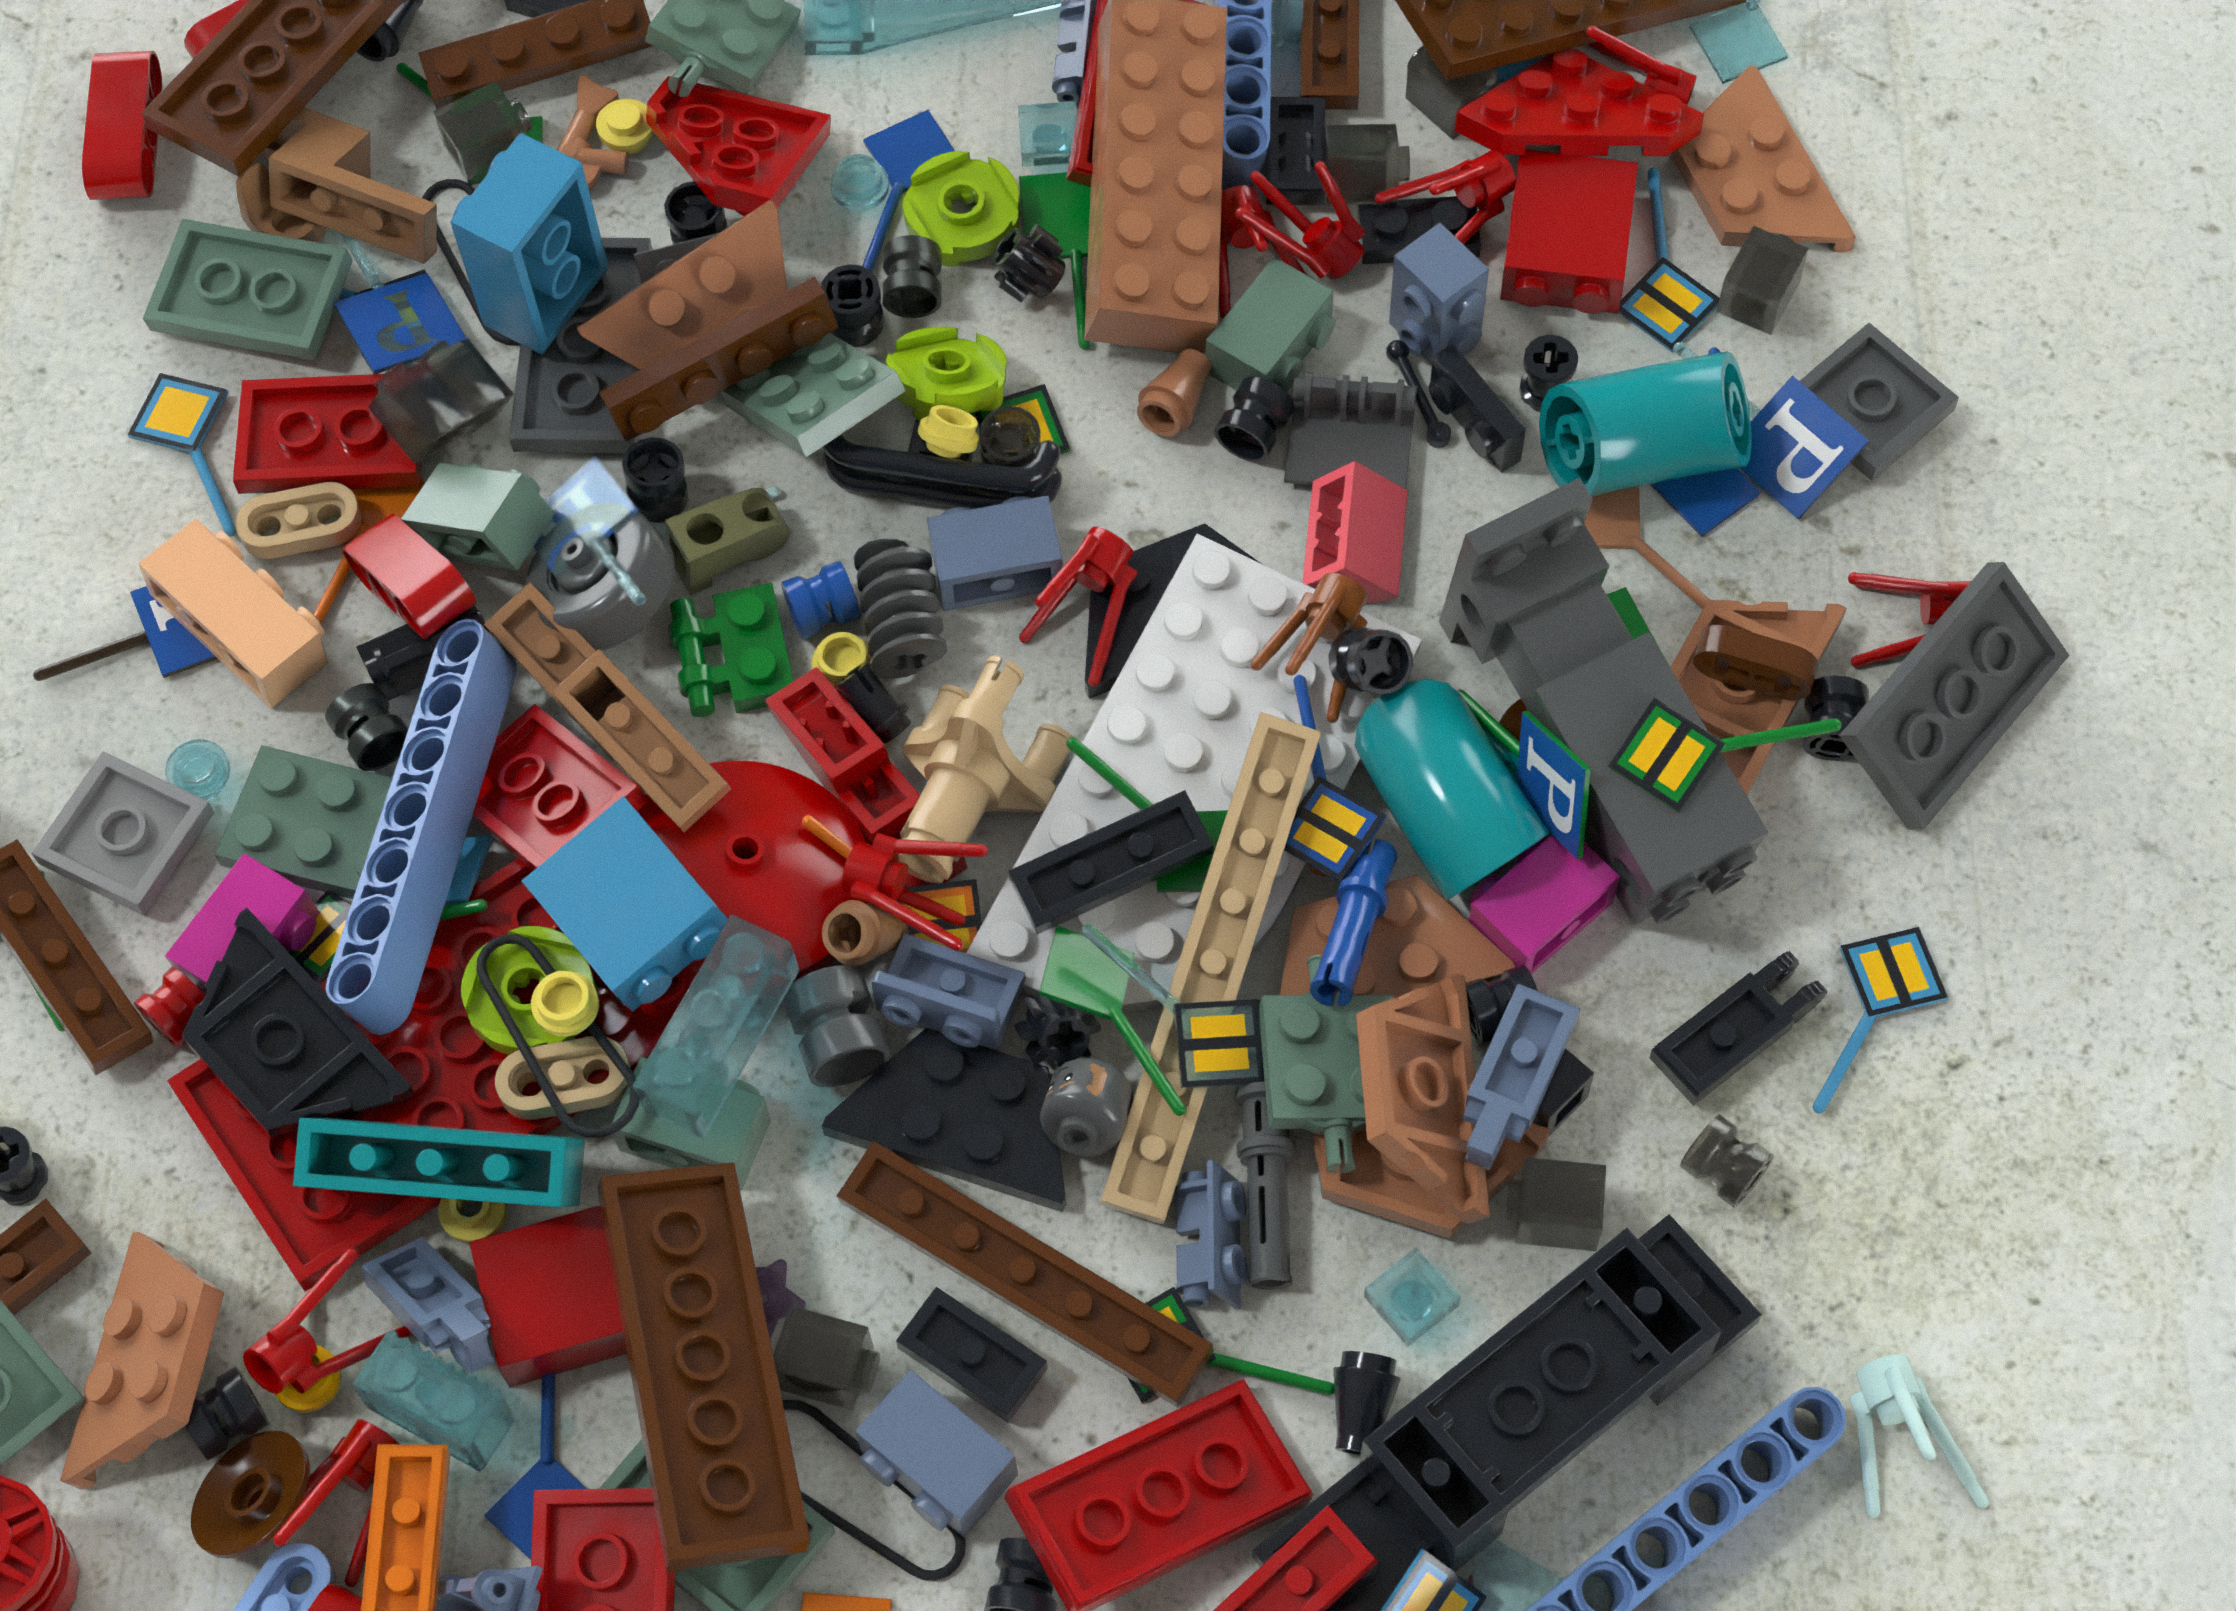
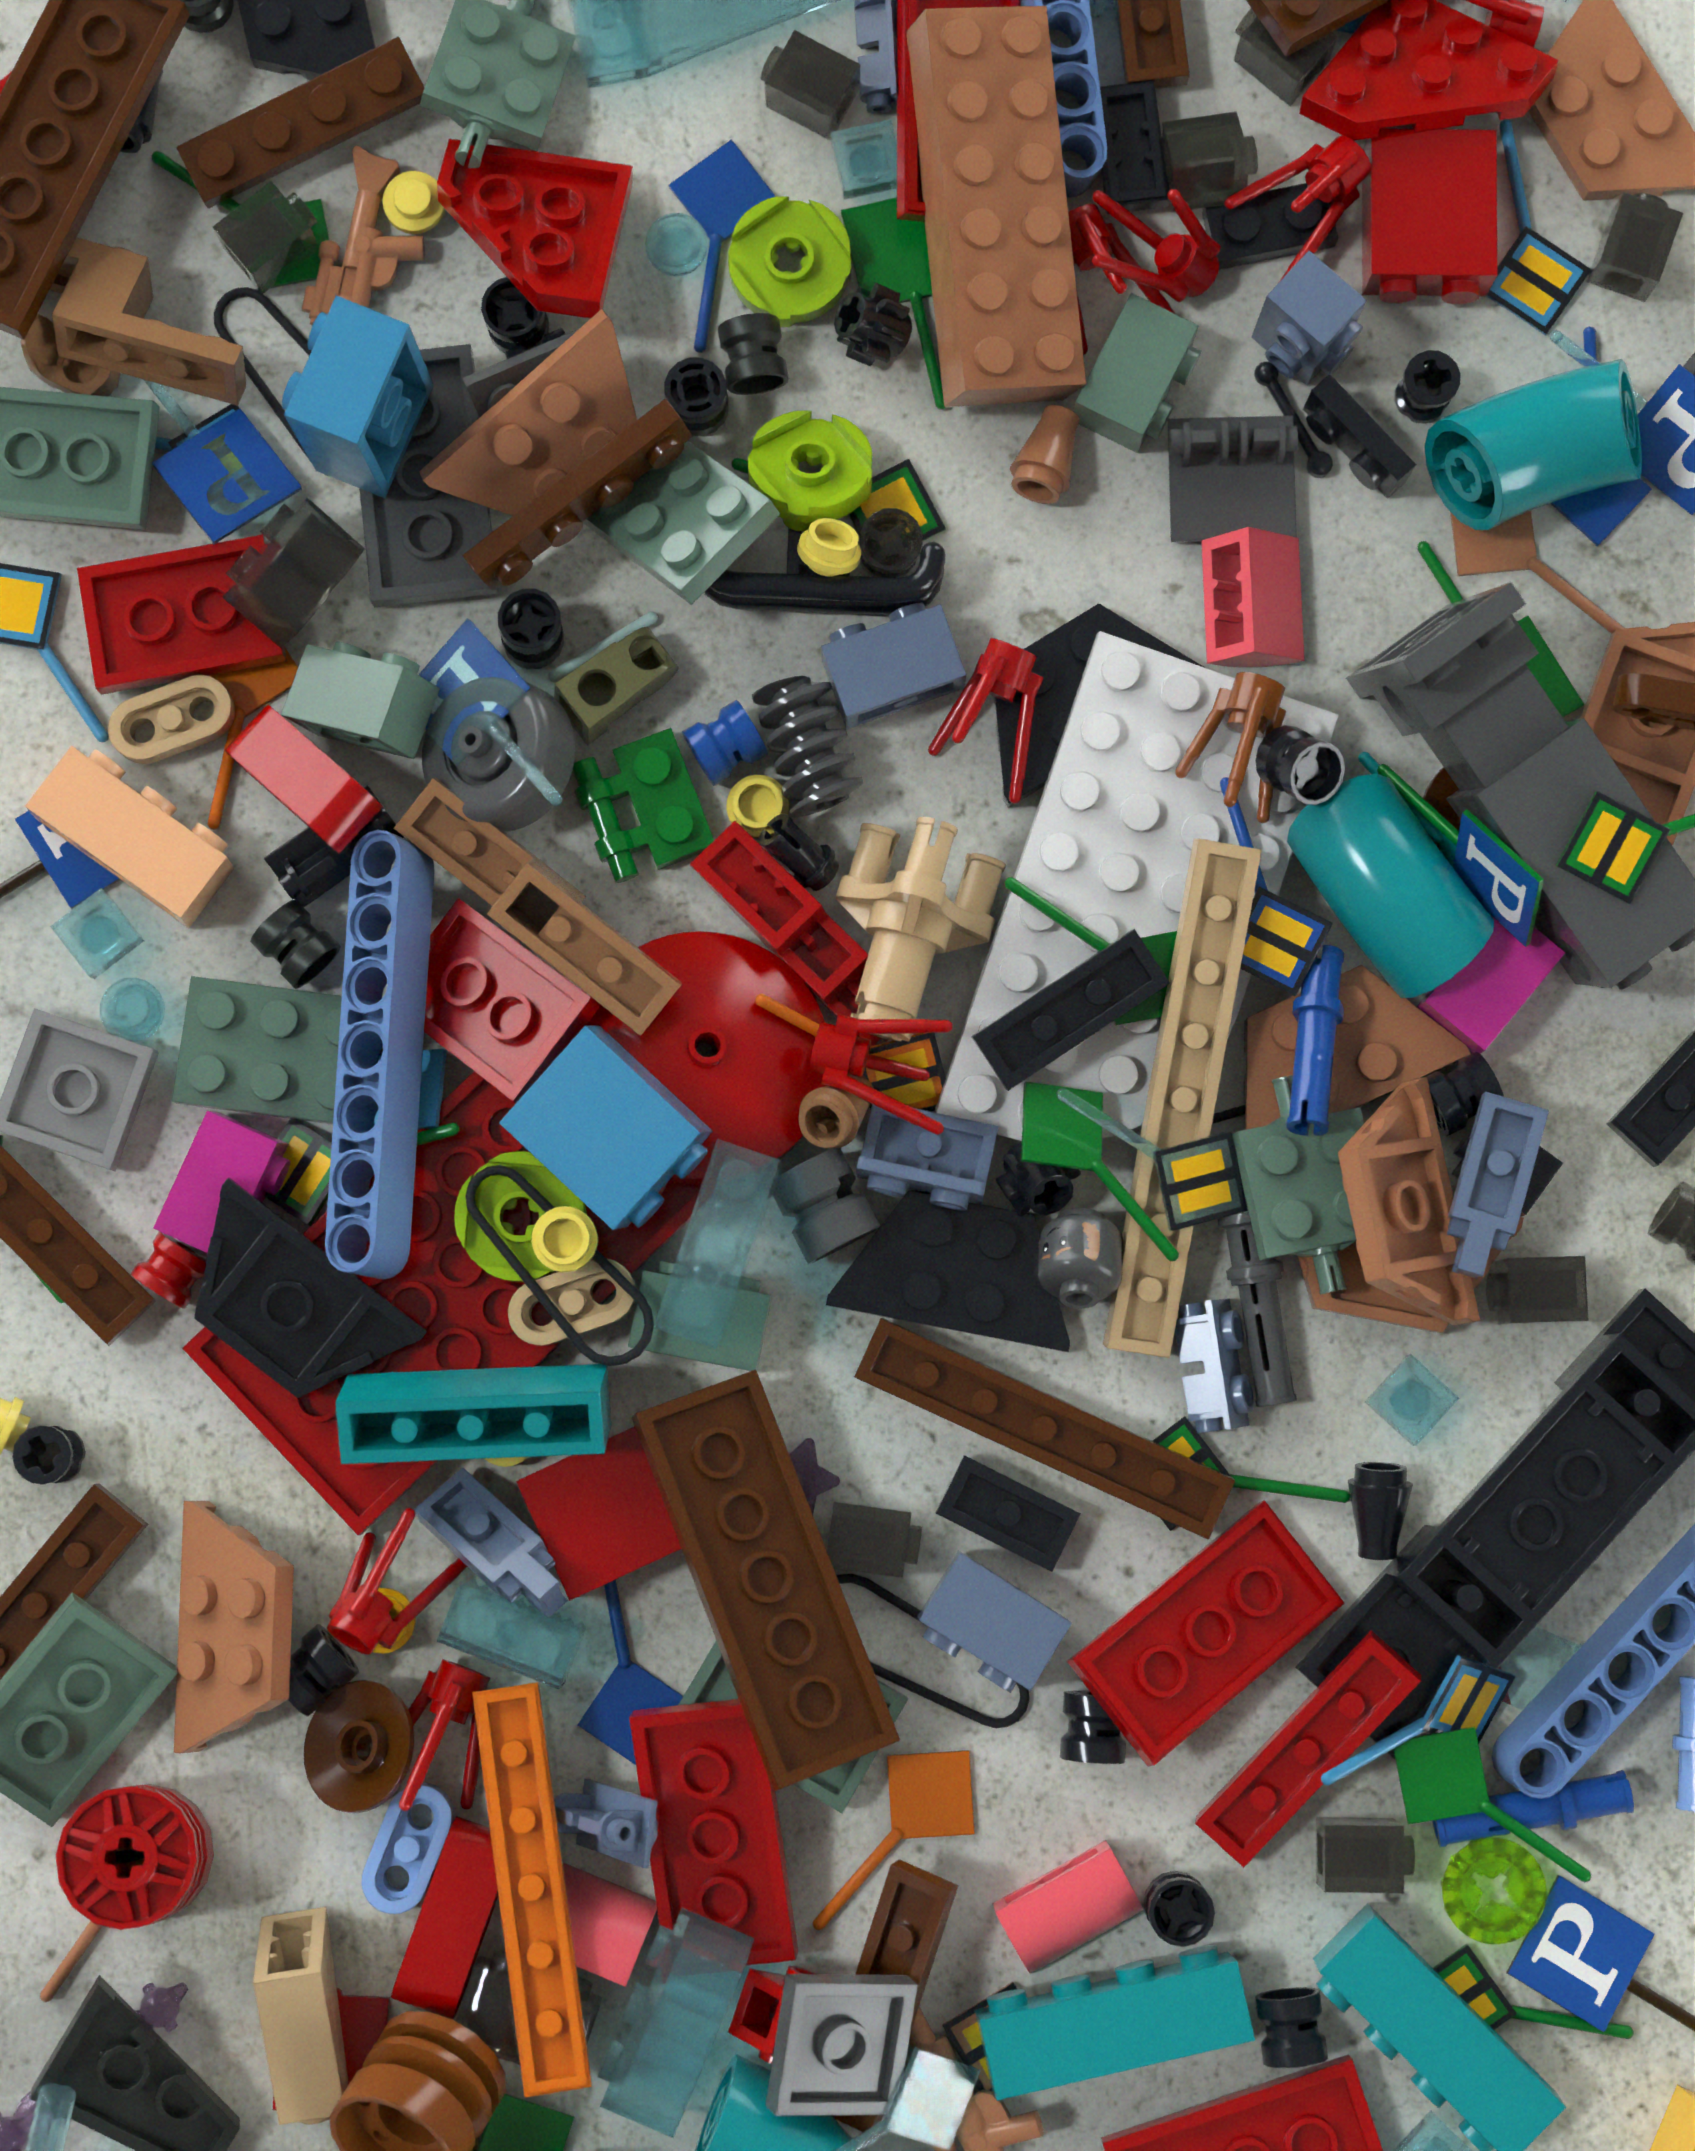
camera: 10 degrees left, 20 degrees up
(181, 696) = (97, 933): none -> clear light blue plate
(1007, 67) = (810, 84): none -> clear smoke brick
(1257, 413) = (1134, 475): black wheel -> none

